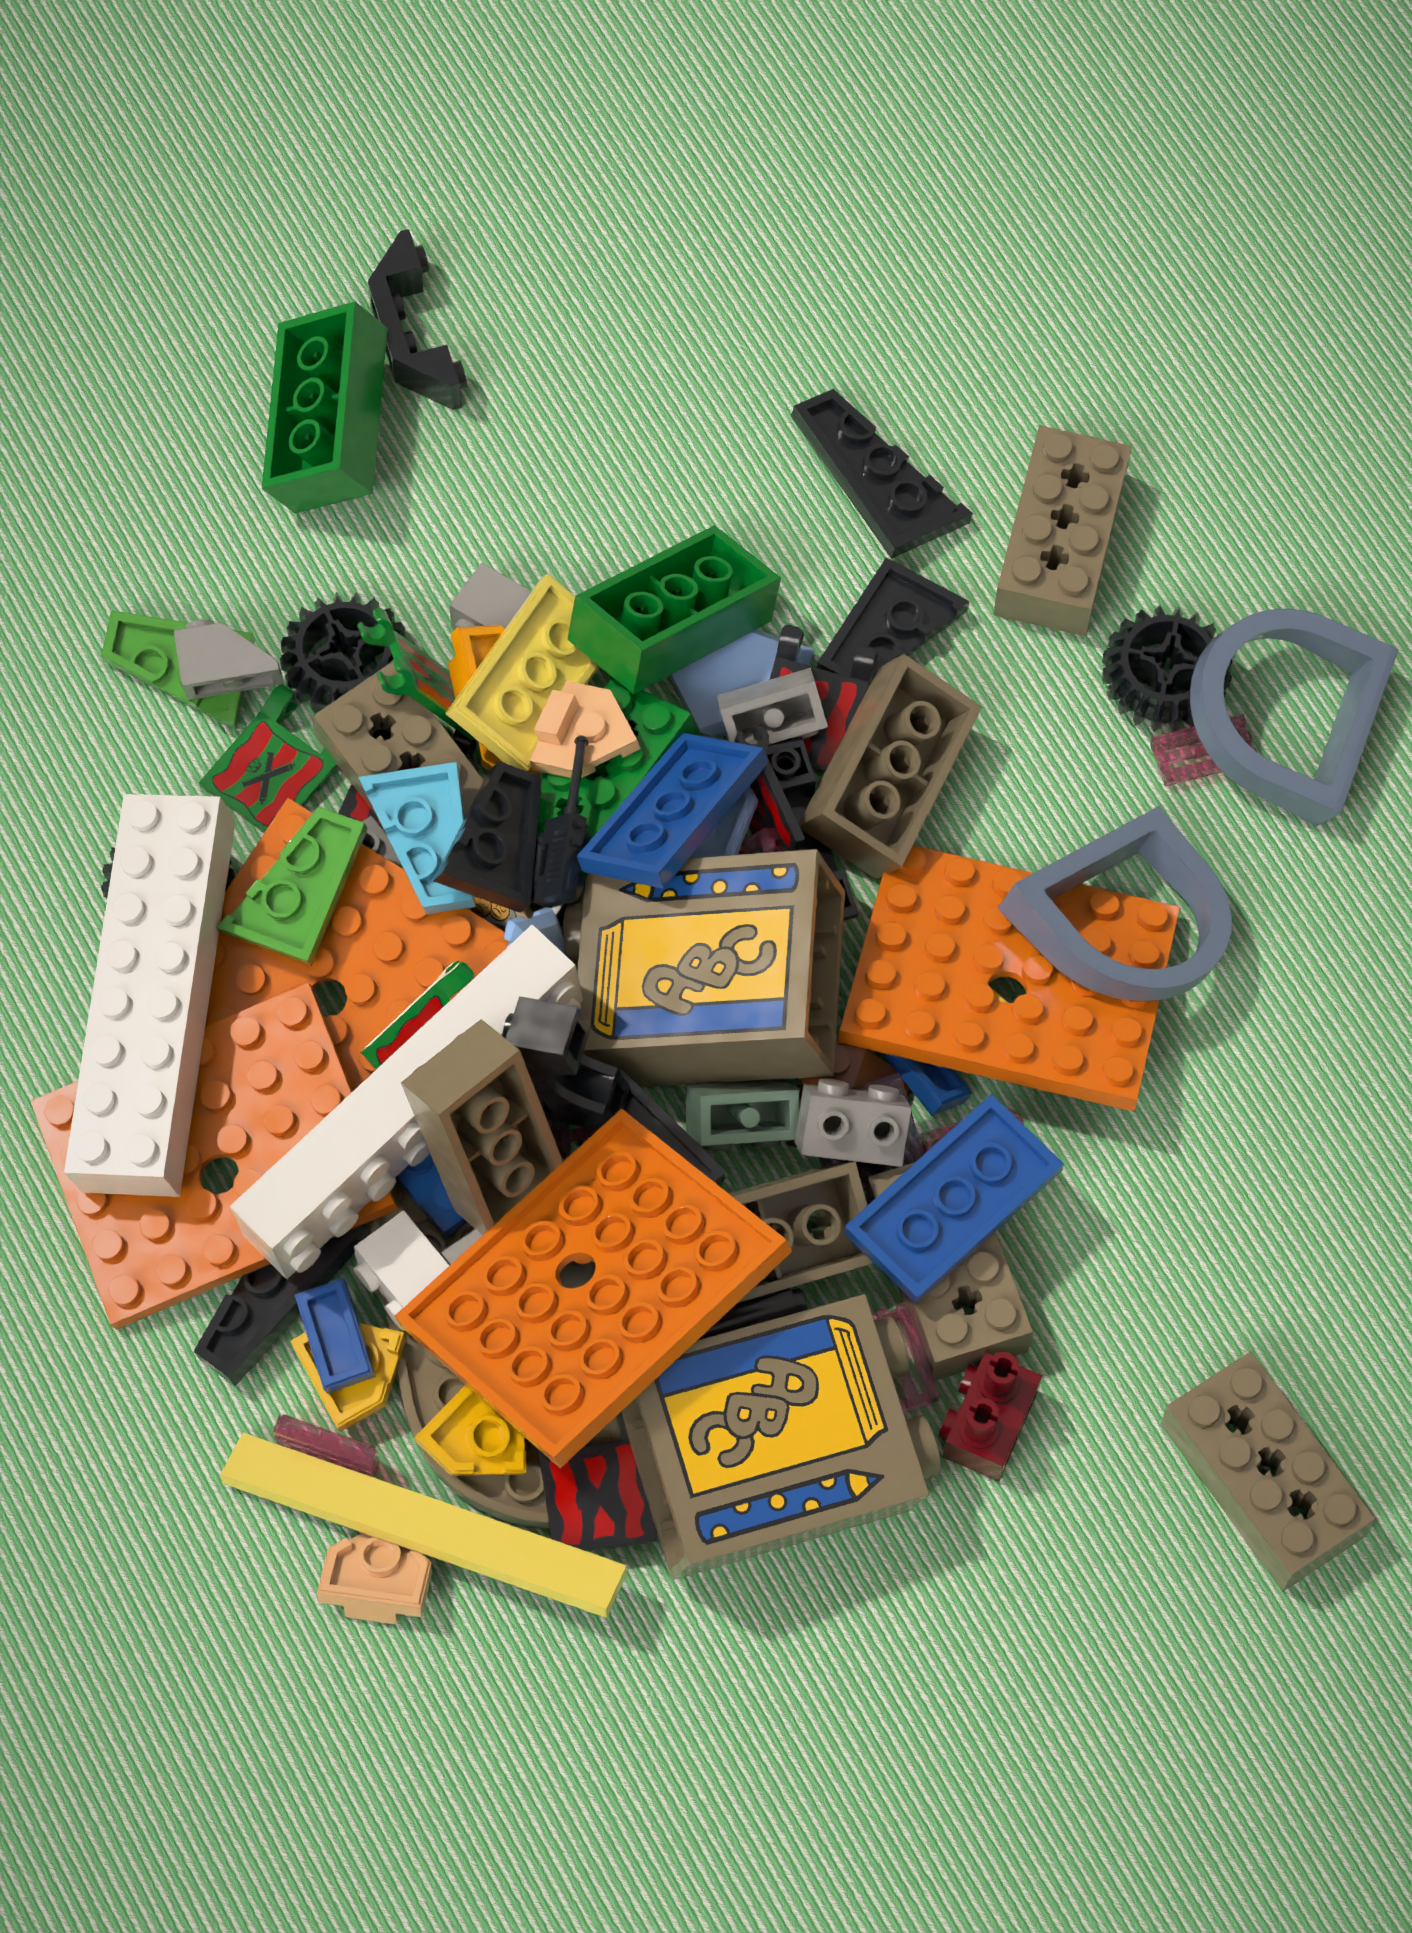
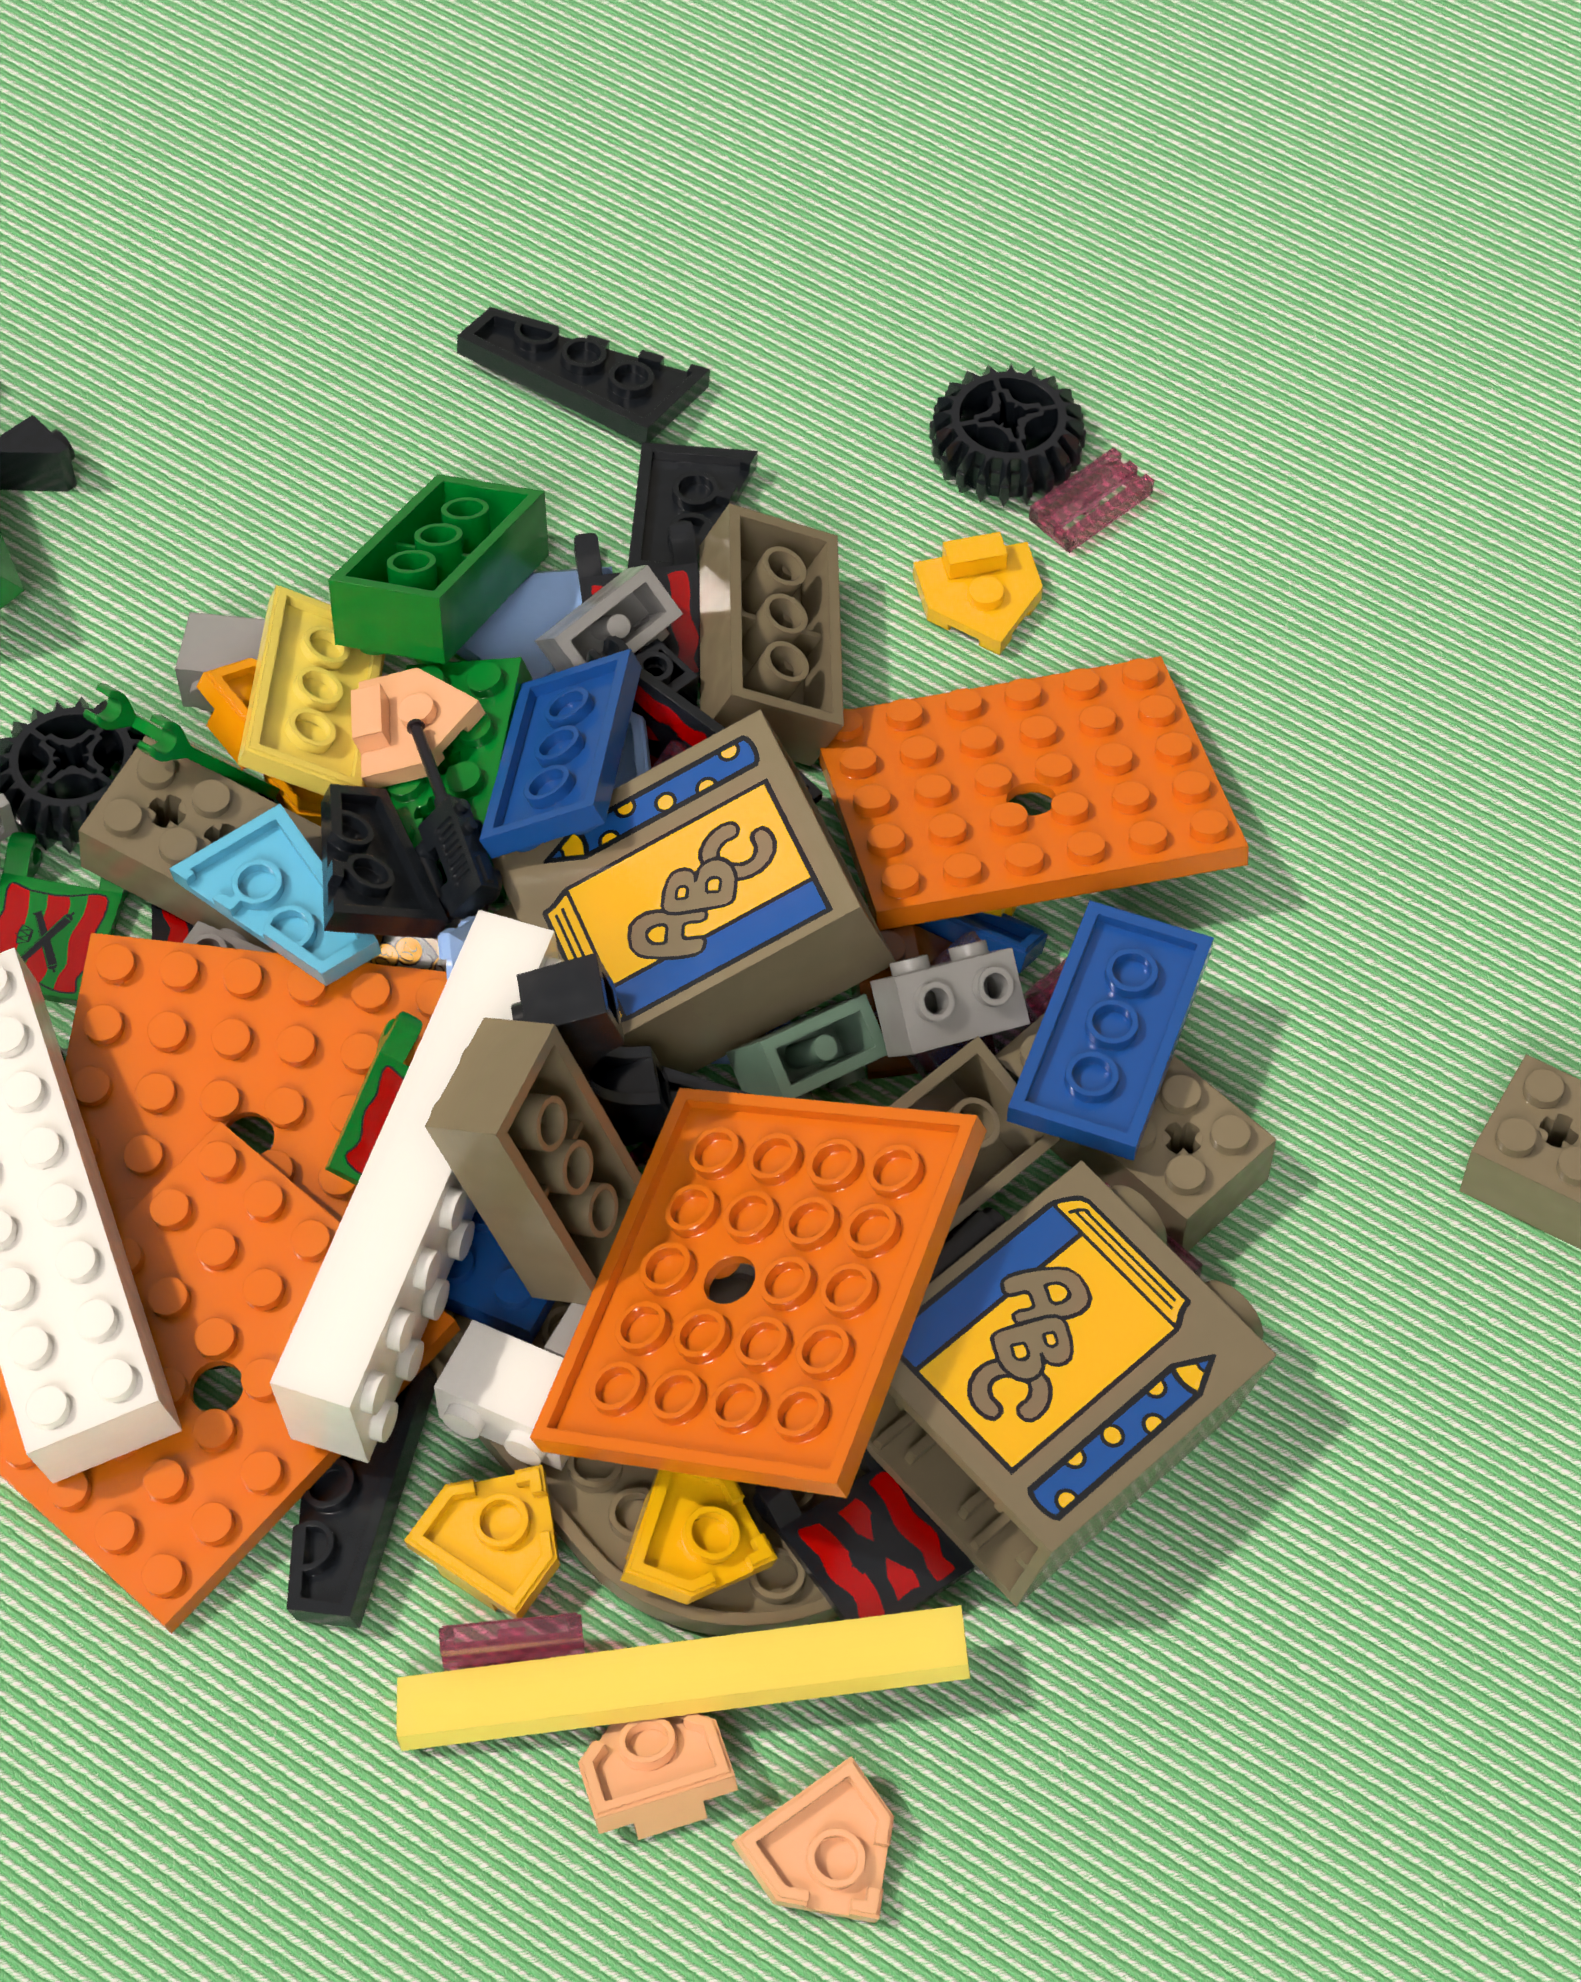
camera: 25 degrees left, 10 degrees down
(300, 891) = (160, 1022): bright green wing -> none
(335, 1335) = (460, 1505): blue tile -> none
(458, 1681) = (824, 1847): none -> light nougat plate
(991, 1414) = (1276, 1250): dark red brick -> none
(1062, 530) = (818, 347): dark tan brick -> none
(1077, 790) = (980, 588): none -> yellow plate
(1175, 859) = (1108, 602): sand blue window -> none
(1369, 666) = (1219, 351): sand blue window -> none

